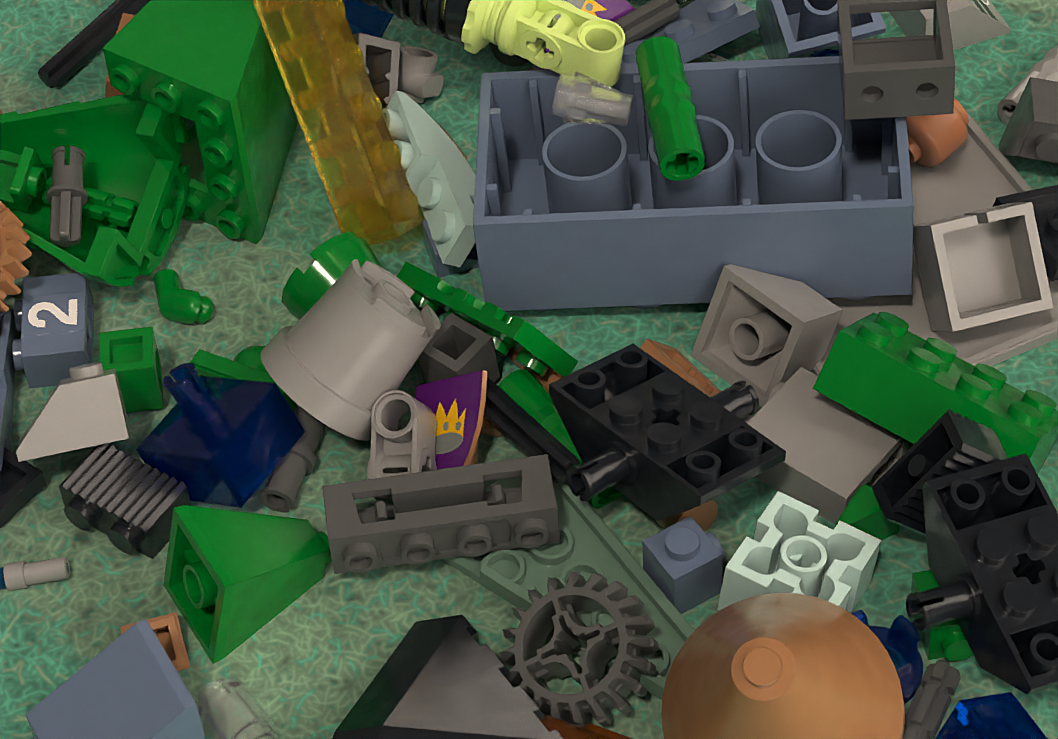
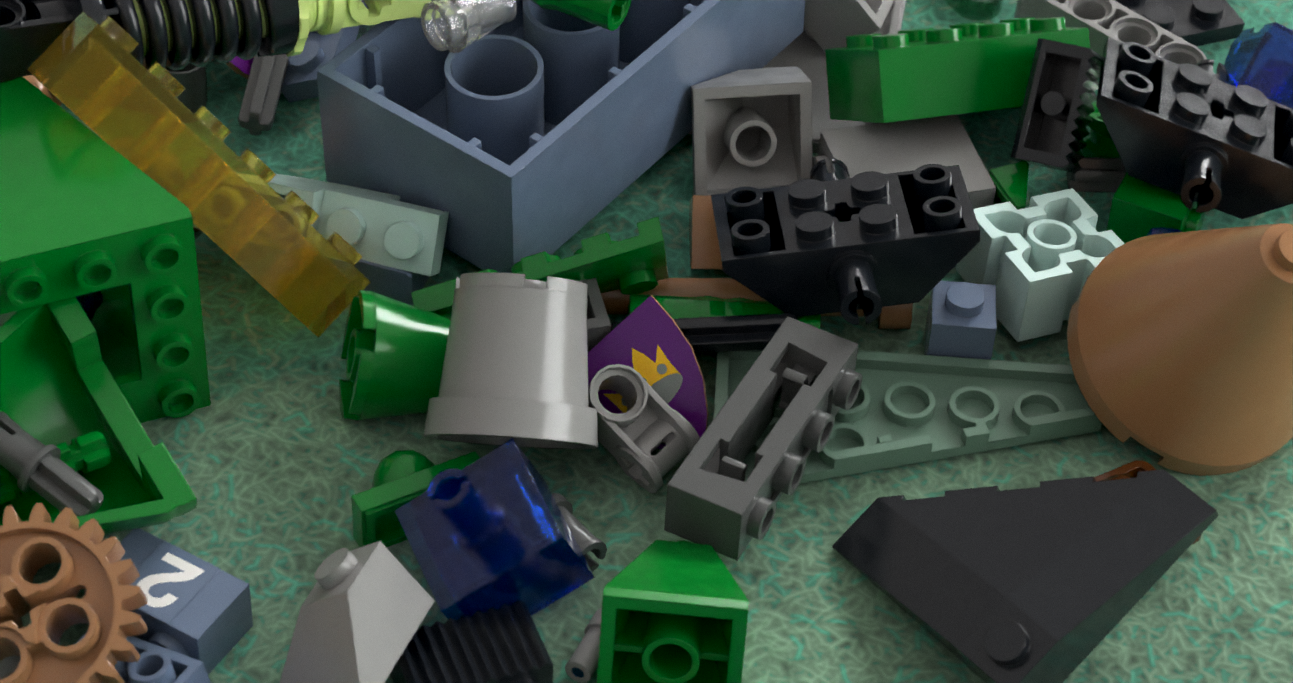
camera: 60 degrees left, 5 degrees down
(136, 364) = (295, 553): green brick -> none
(180, 304) = (235, 496): green arm -> none
(624, 638) = (957, 421): dark grey gear -> none

